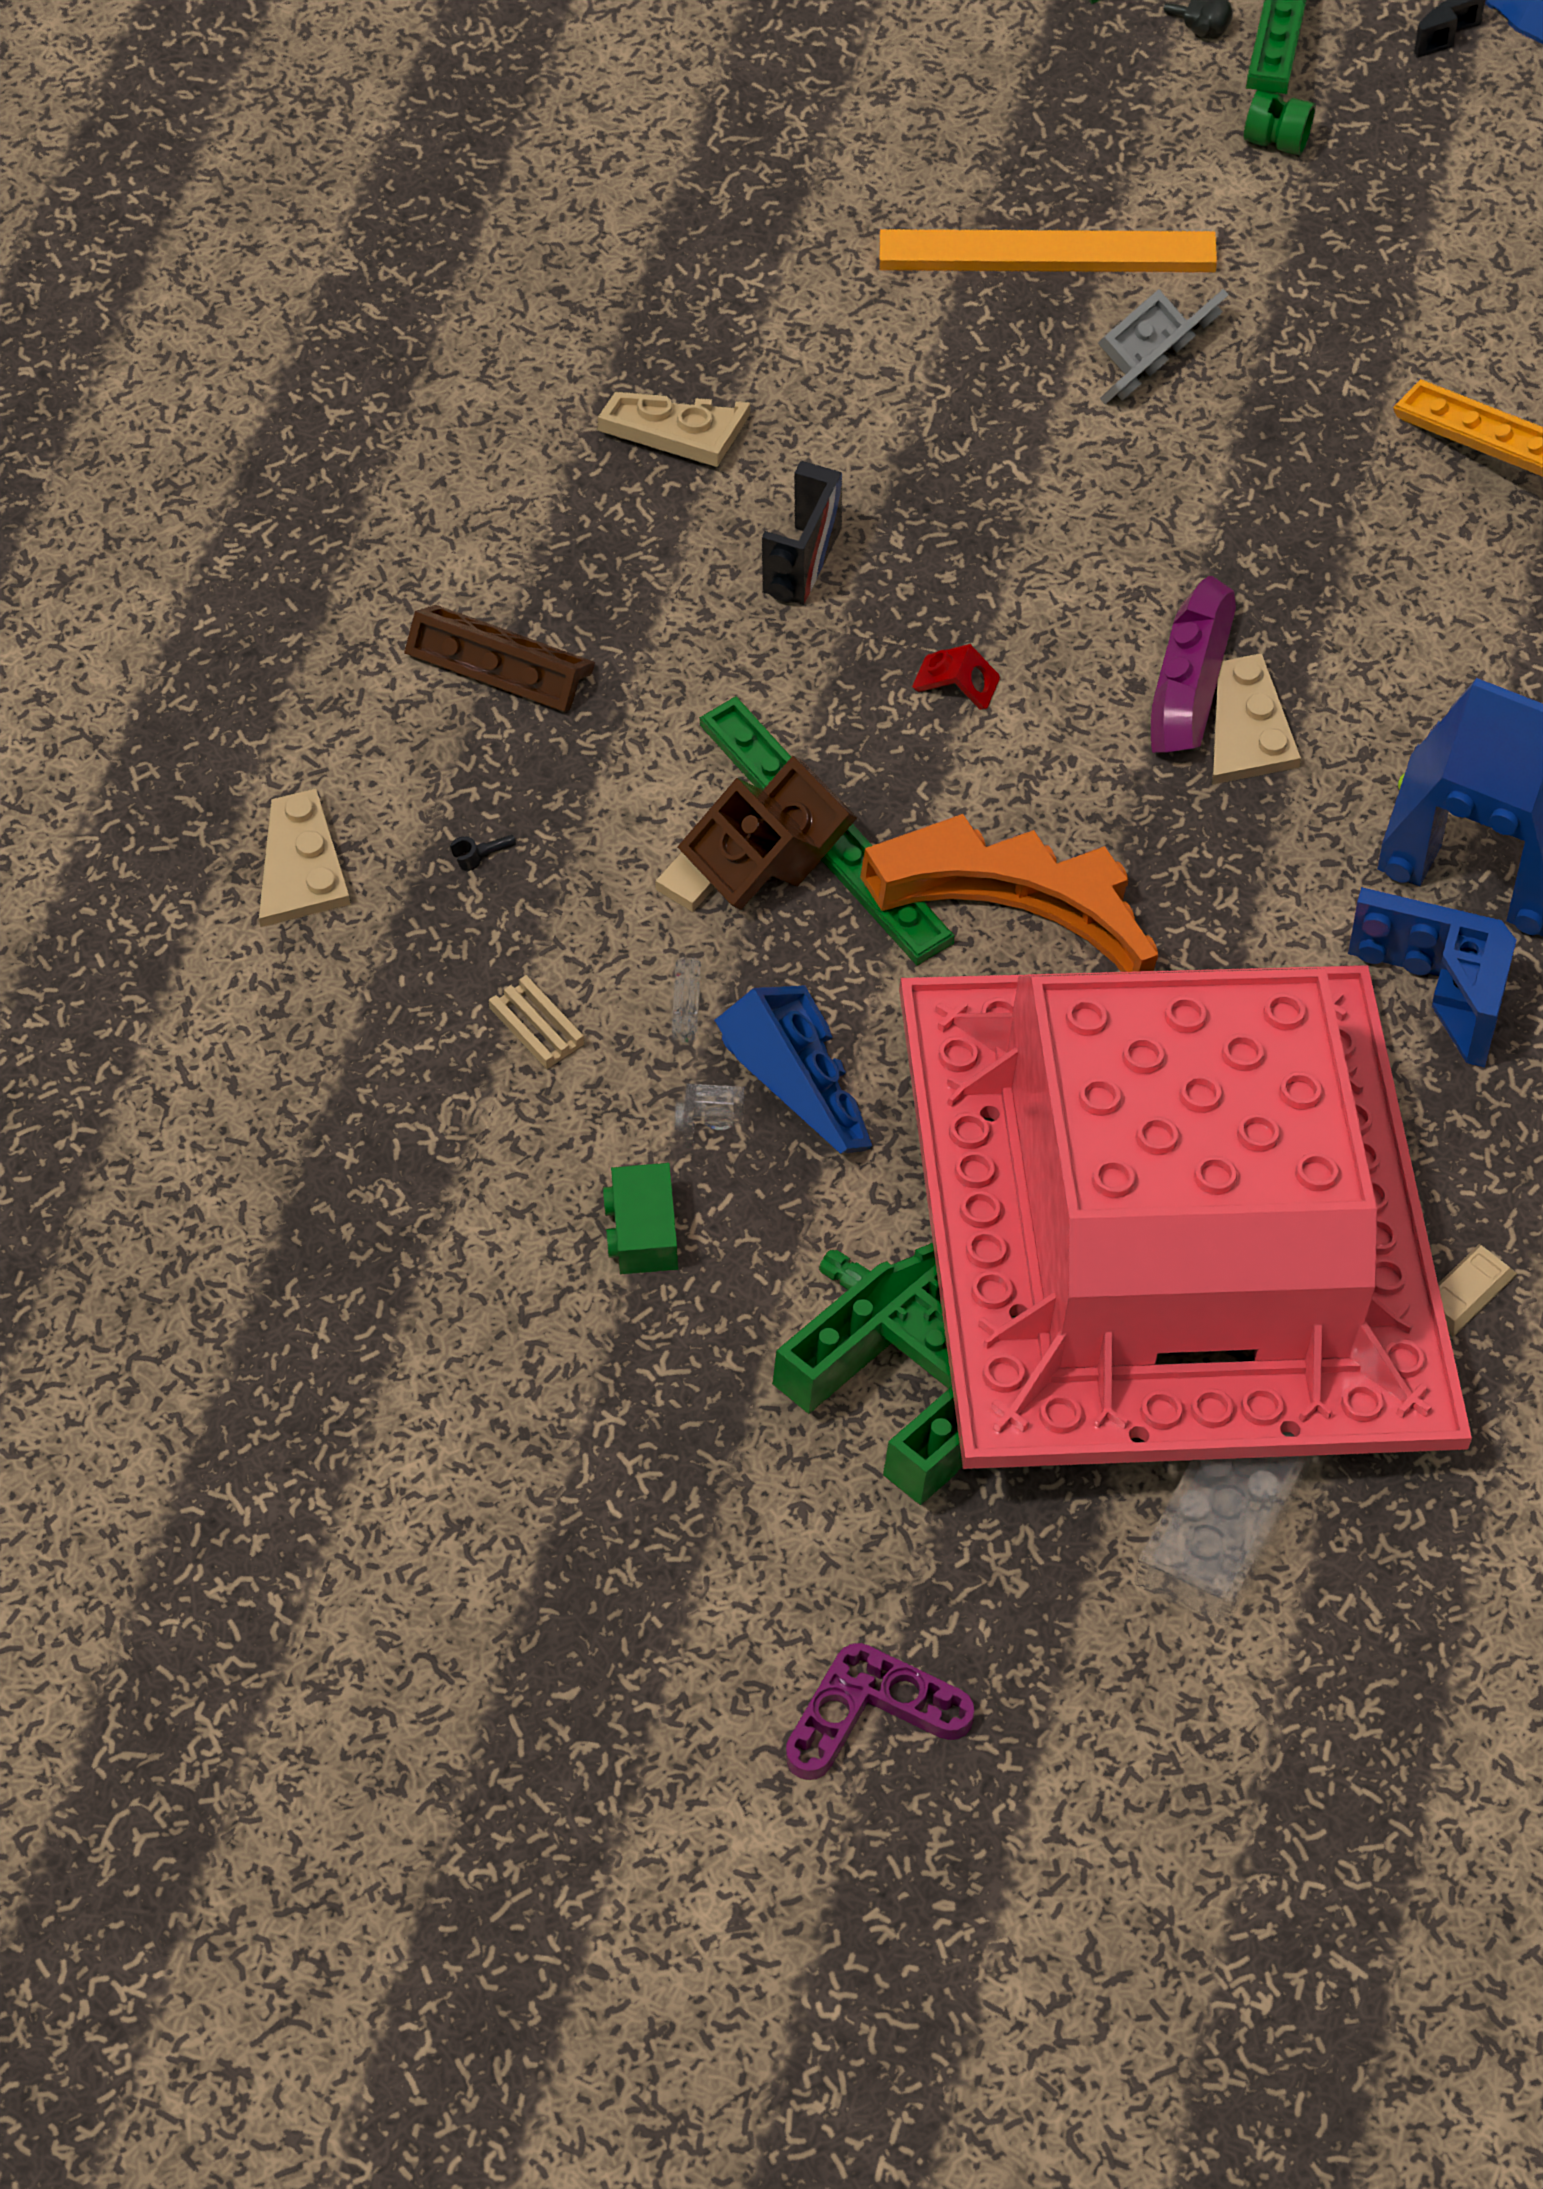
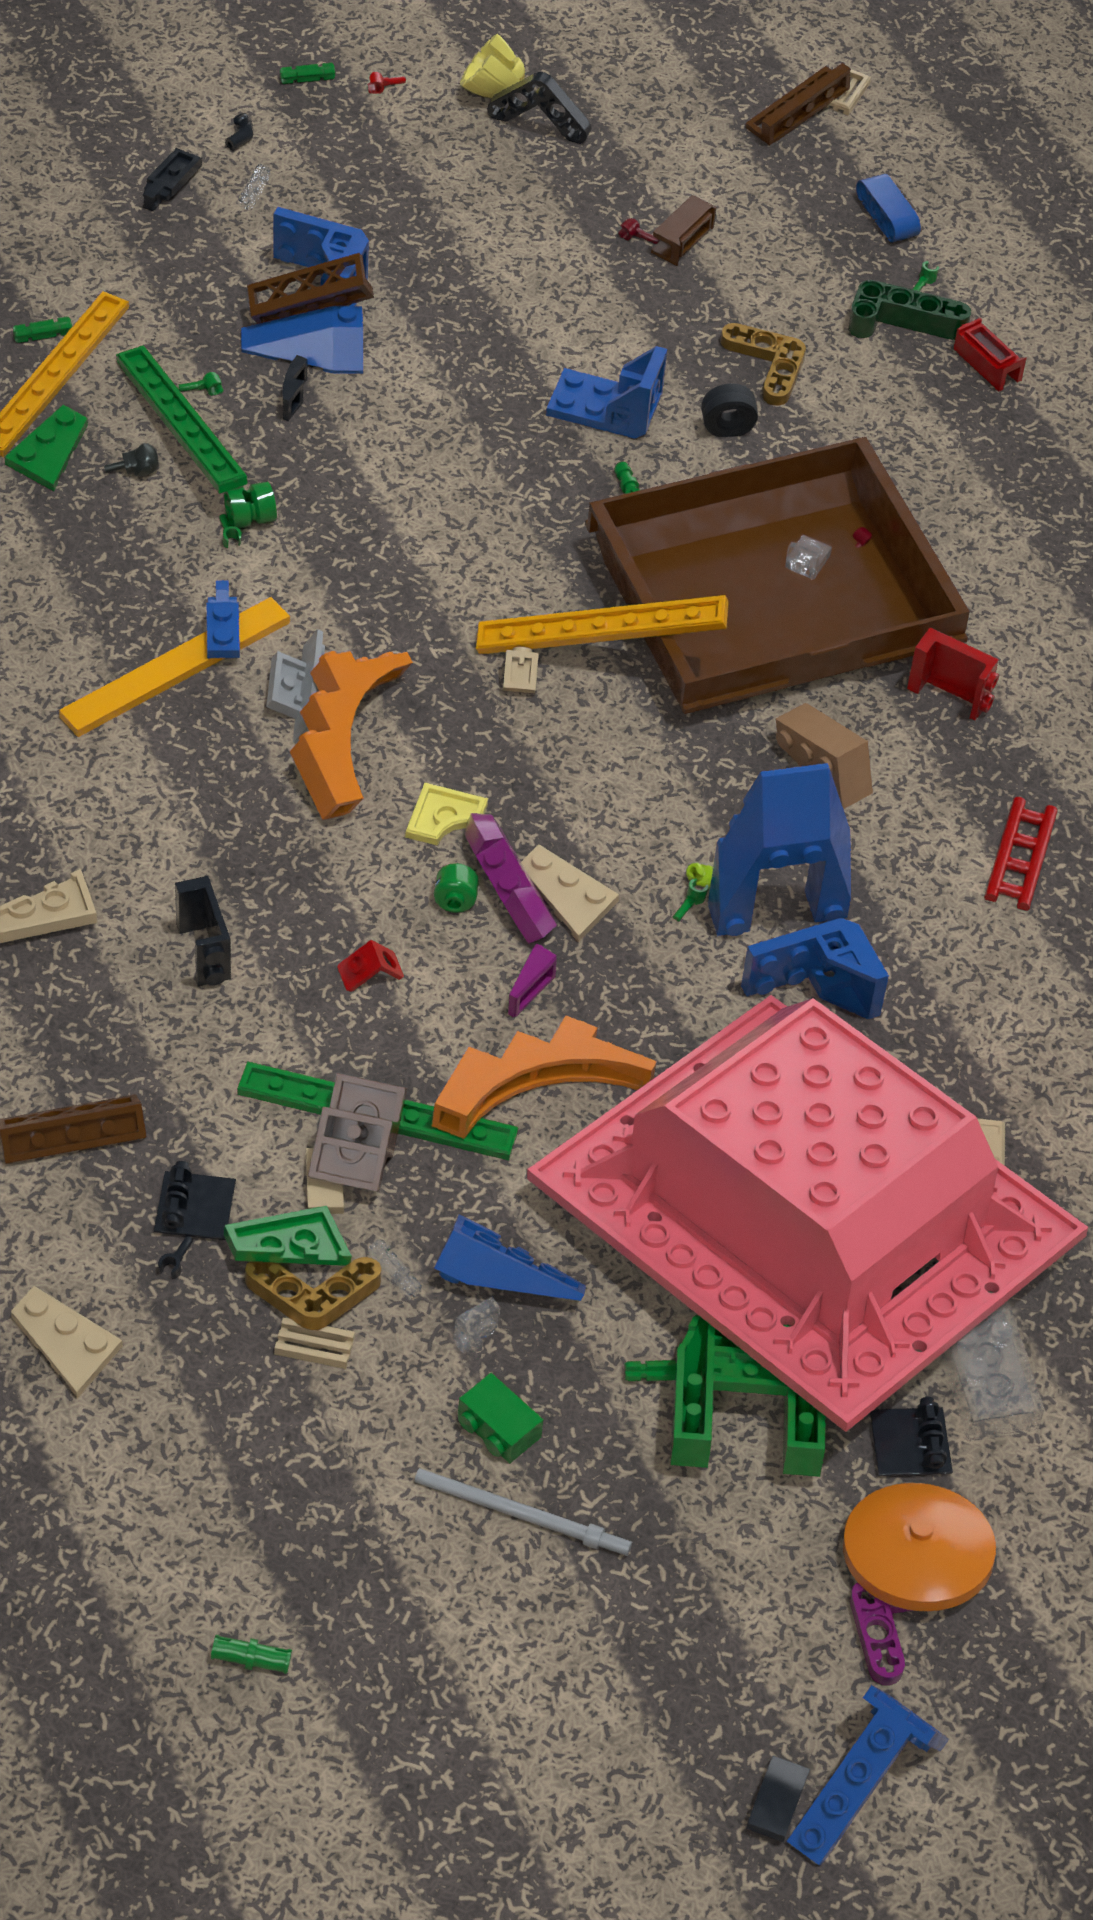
camera: 45 degrees left, 5 degrees down
(181, 1284) = (251, 1654): none -> green pin
(548, 807) = (194, 1203): none -> black hinge
(558, 1801) = (778, 1798): none -> black slope
(568, 974) = (311, 1299): none -> pearl gold beam
(602, 898) = (291, 1237): none -> green wing
(627, 1399) = (591, 1535): none -> light grey bar
(736, 1803) = (861, 1773): none -> blue bracket
(961, 1654) = (919, 1547): none -> orange dish
(1068, 1539) = (911, 1440): none -> black hinge
(1112, 790) = (533, 978): none -> magenta slope
(1125, 646) = (456, 888): none -> green head
(1131, 230) = (223, 623): none -> blue hinge
(1188, 558) = (441, 812): none -> light yellow tile
(1190, 364) = (325, 749): none -> orange arch
(1235, 141) = (229, 531): none -> green hand
(1376, 814) = (693, 897): none -> green hand
(1418, 456) = (520, 670): none -> tan bracket

